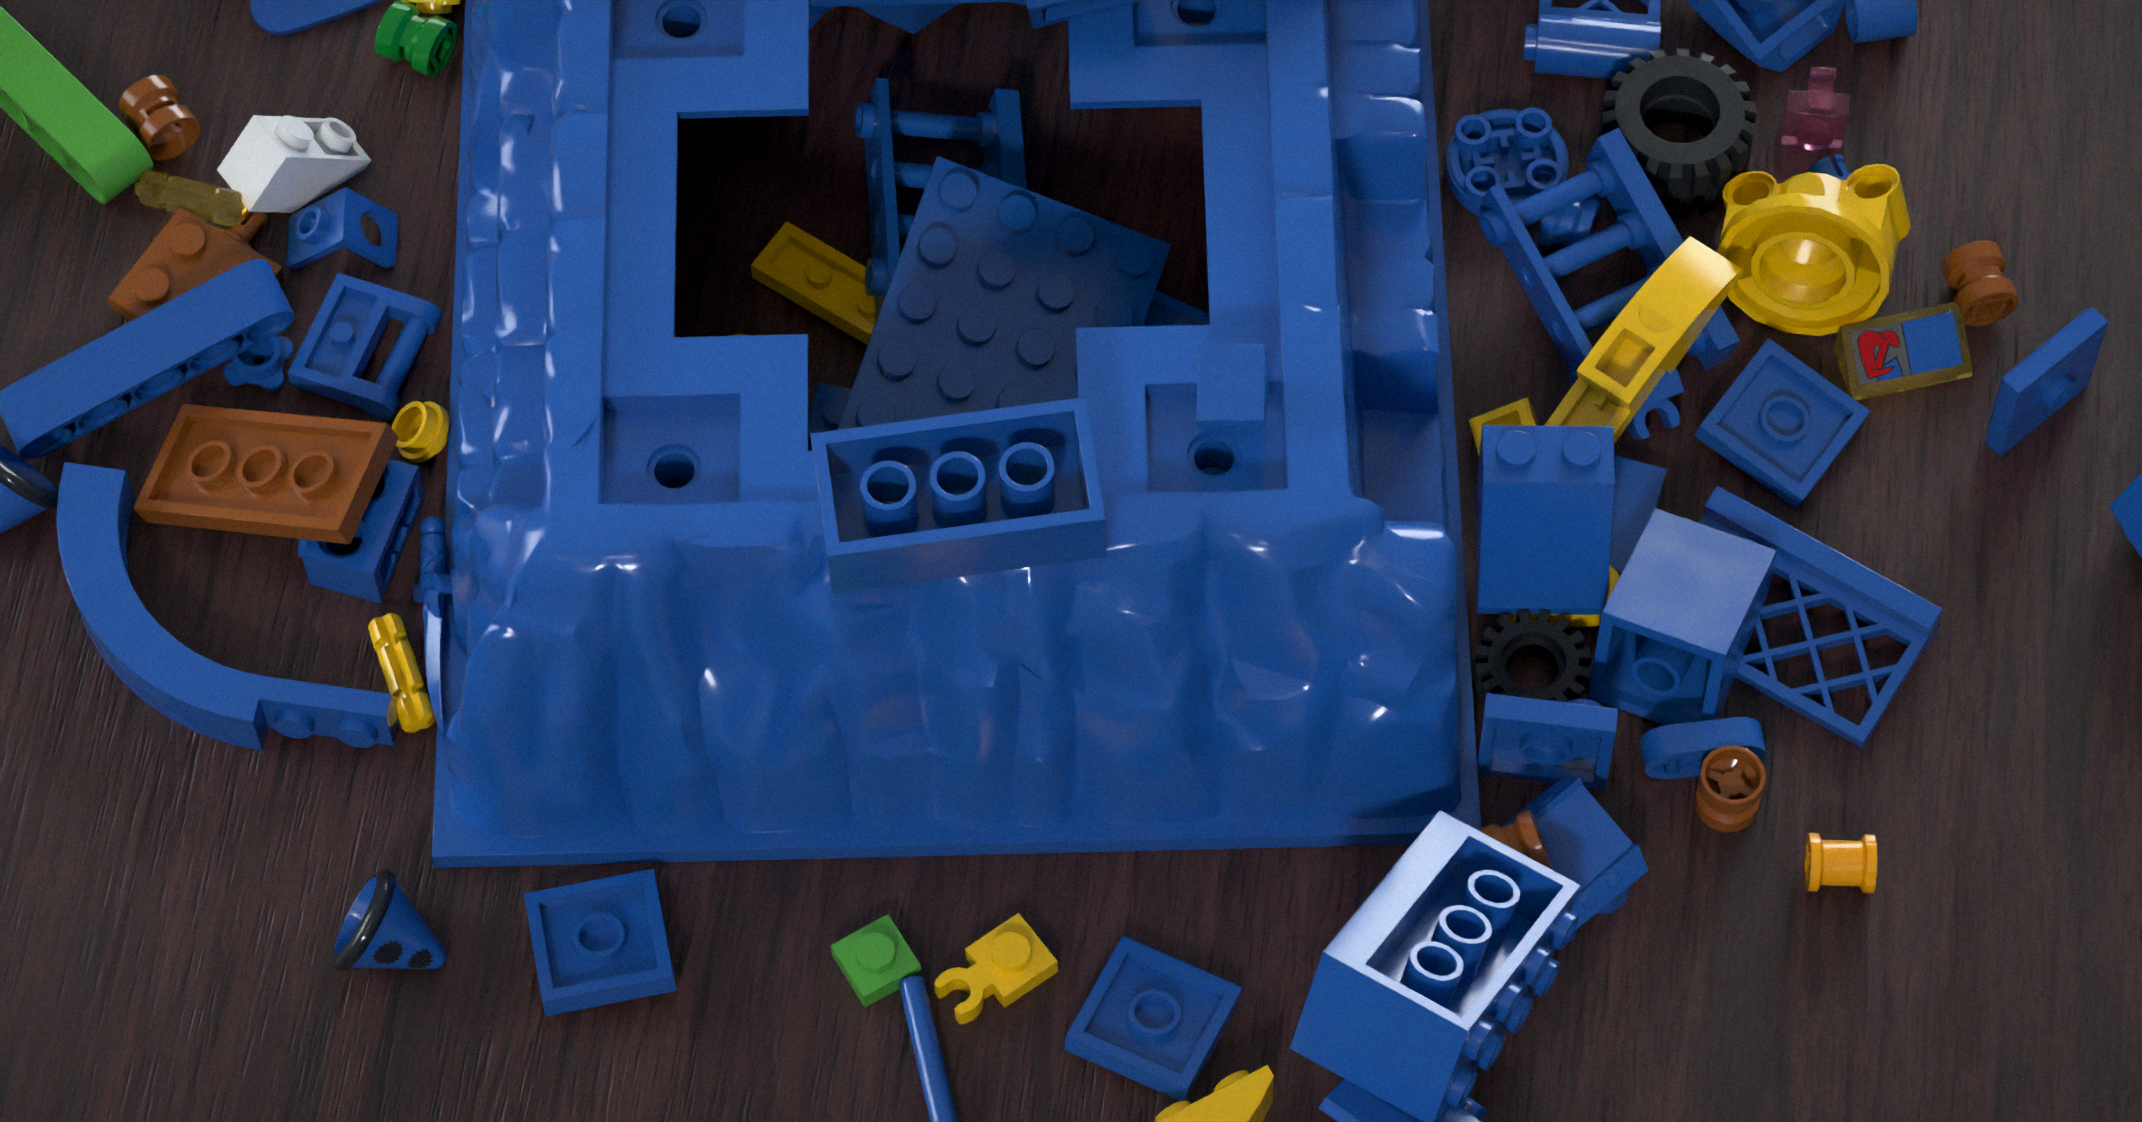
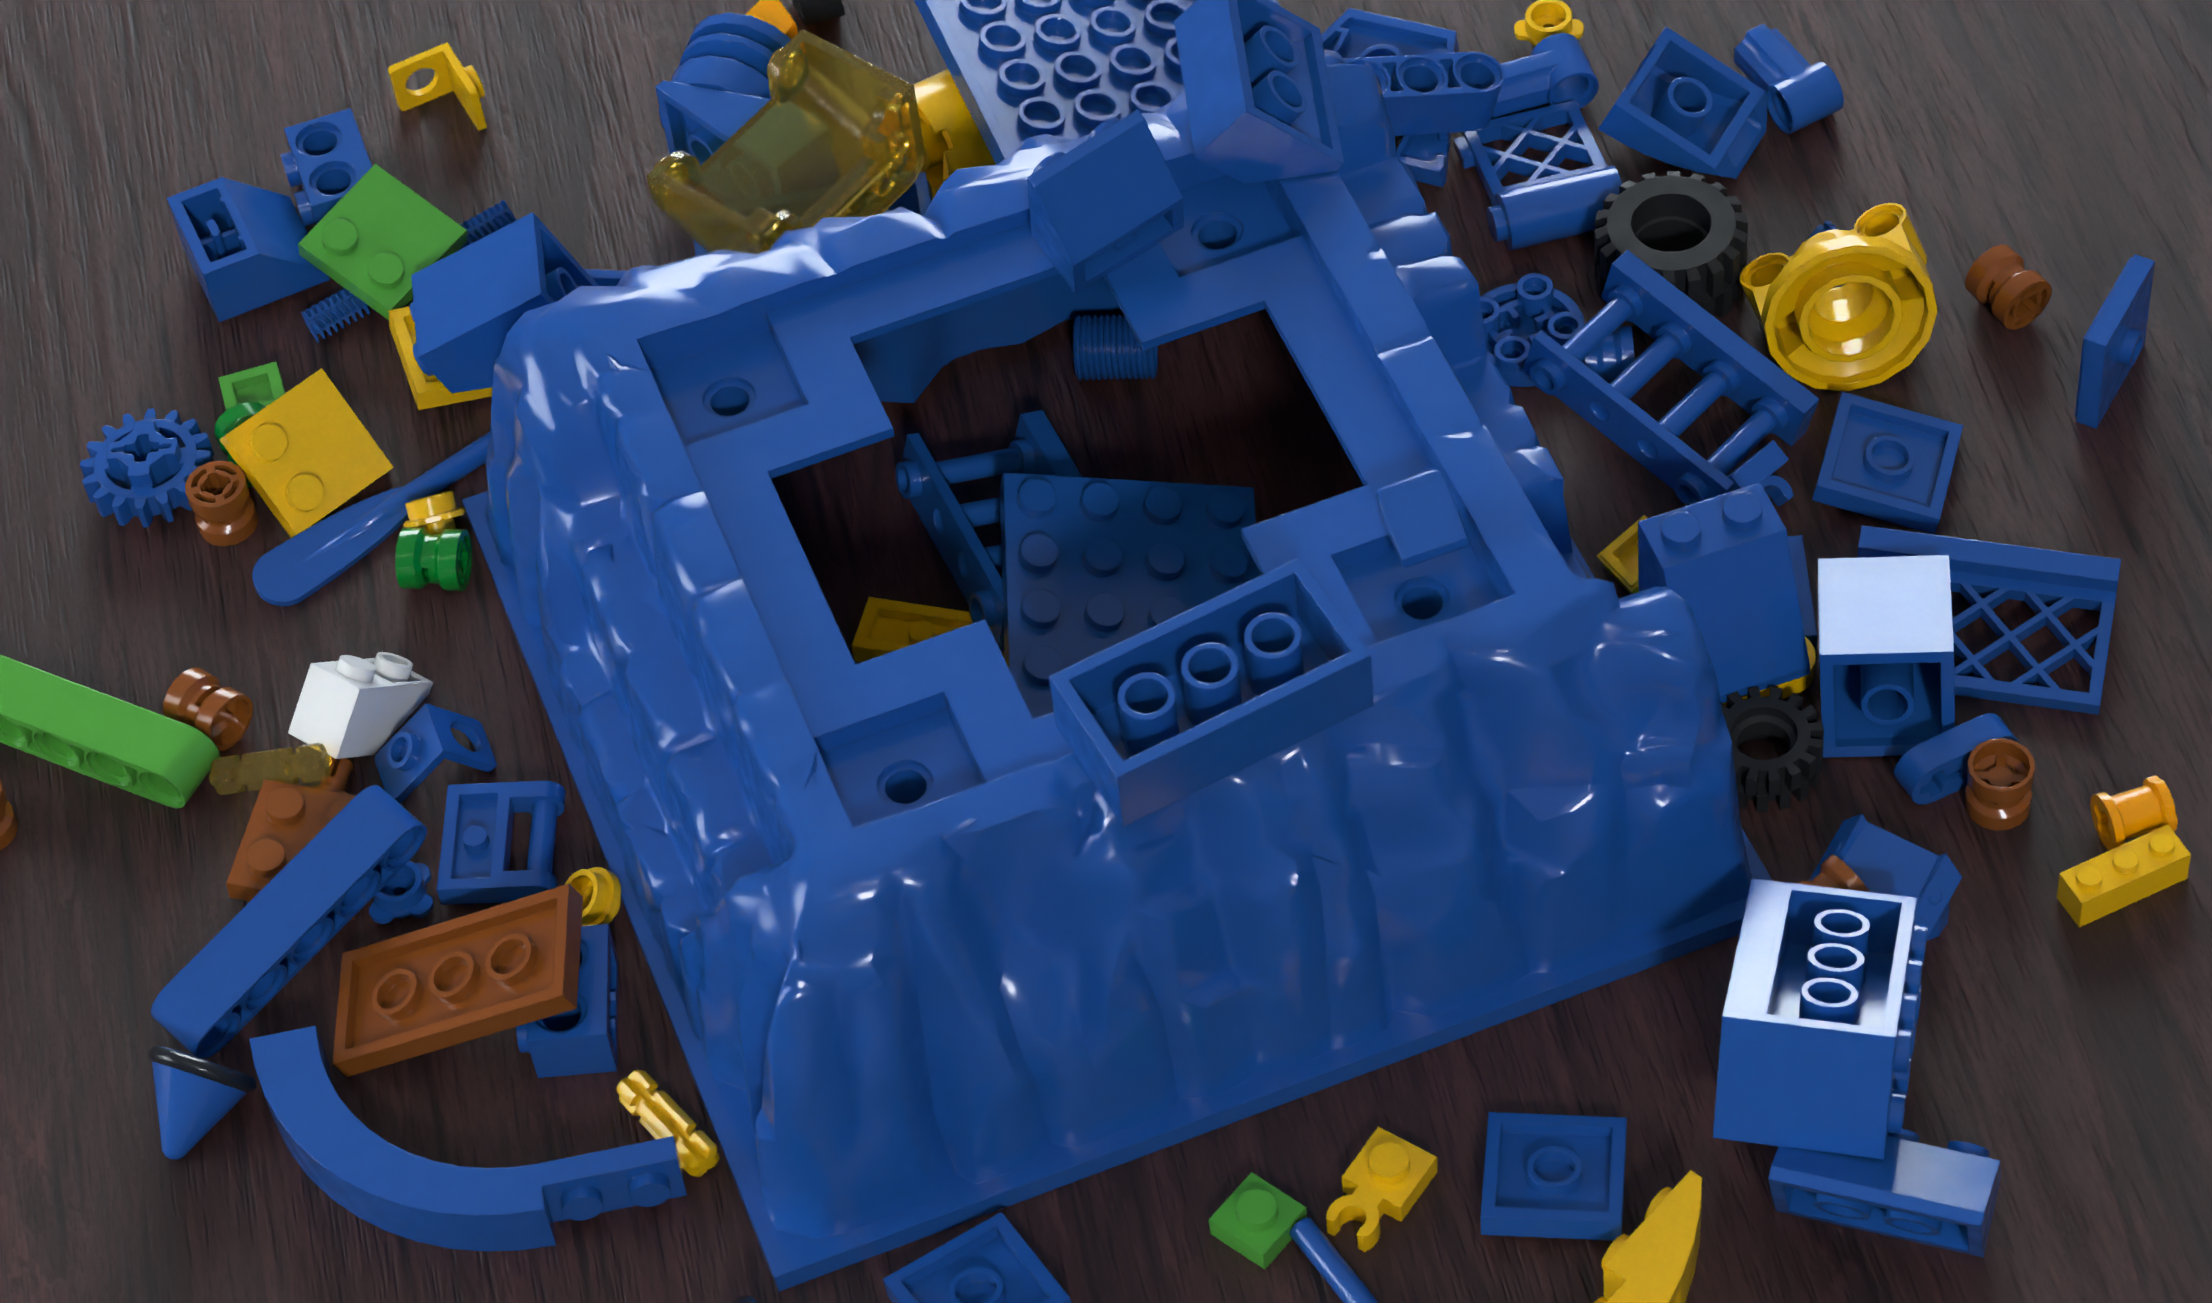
camera: 15 degrees left, 10 degrees down
(430, 591) = (669, 1038): blue piece -> none
(1546, 739) = (1808, 792): blue plate -> none
(1648, 338) = (1742, 408): yellow slope -> none
(1803, 920) = (2123, 875): none -> yellow piece
(1816, 116) = (1792, 196): clear pink plate -> none
(1903, 351) = (1966, 366): slope -> none

